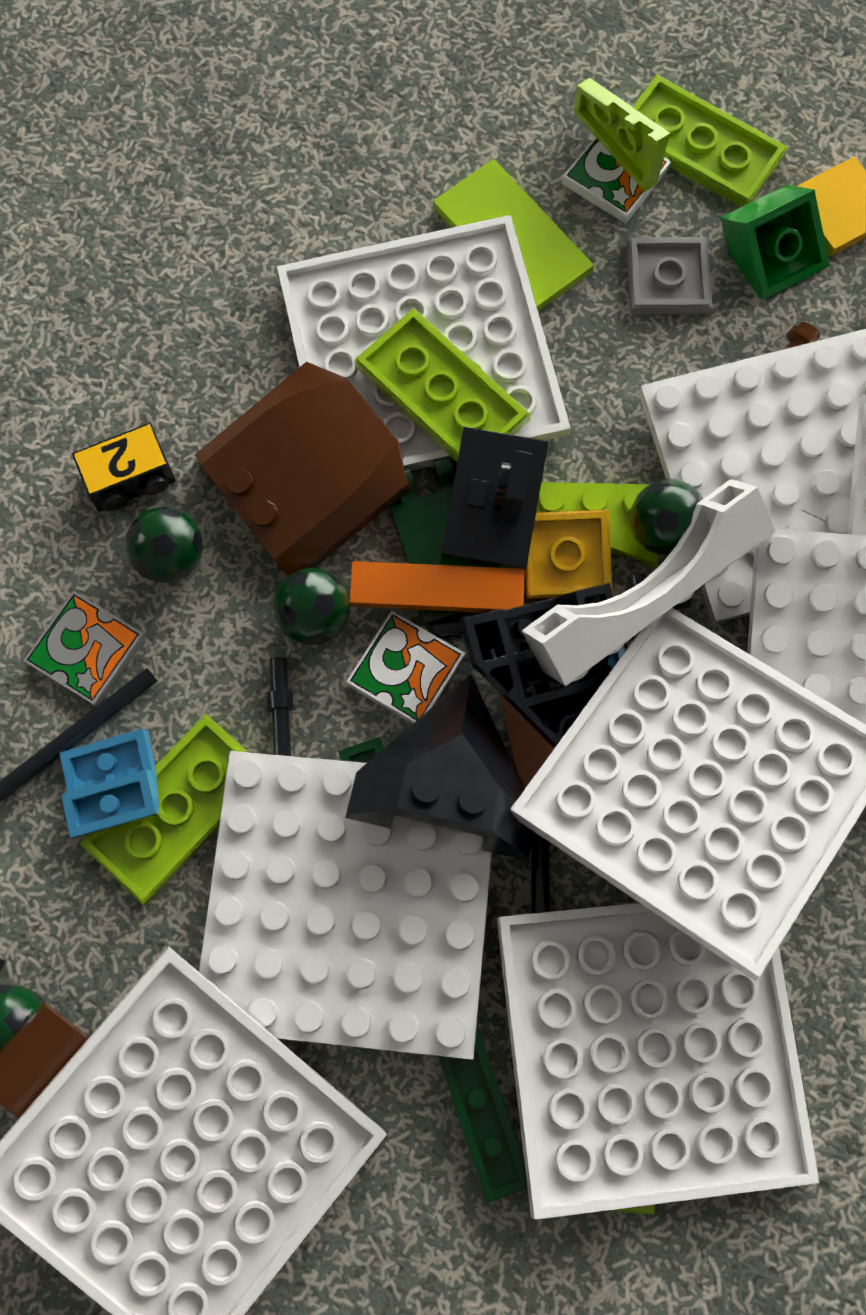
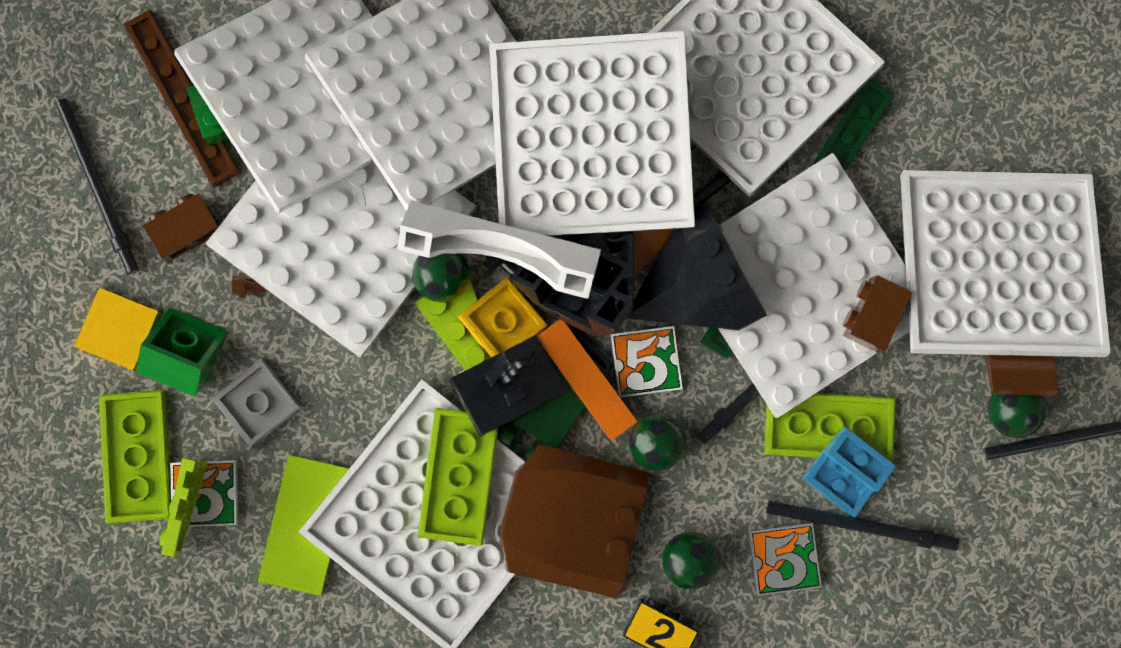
camera: 135 degrees left, 10 degrees up
(245, 946) = (876, 313): none -> reddish brown brick

